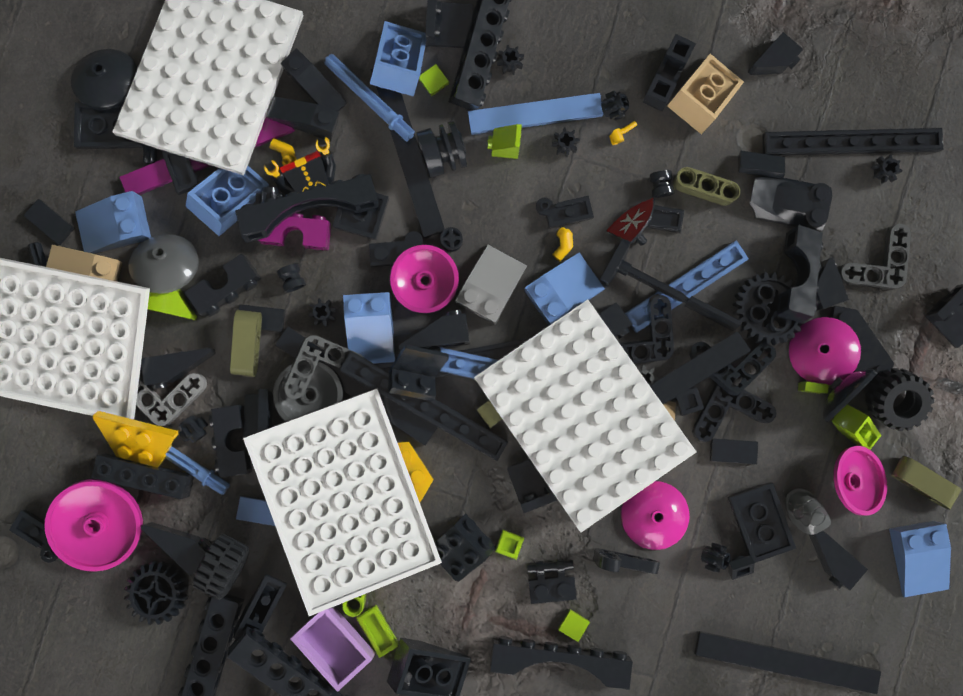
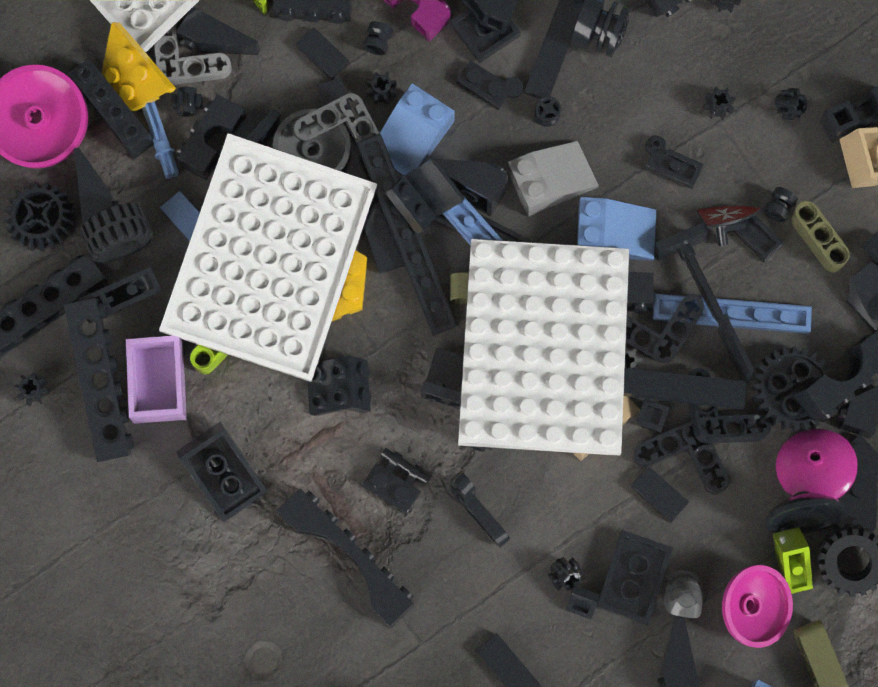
camera: 40 degrees right, 10 degrees down
(245, 343) = (292, 63): olive beam -> none
(377, 631) = (203, 402): lime tile -> none
(419, 263) = (499, 109): dark pink dish -> none
(505, 141) = (664, 62): lime slope -> none
(509, 544) = (384, 418): lime tile -> none
(536, 113) = (712, 59): medium blue tile -> none
(566, 243) = (649, 192): yellow arm -> none
(573, 625) = (385, 536): lime tile -> none
(616, 136) = (773, 131): yellow hand -> none
(639, 514) = (539, 515): dark pink dish -> none
(813, 387) = (778, 490): lime tile -> none

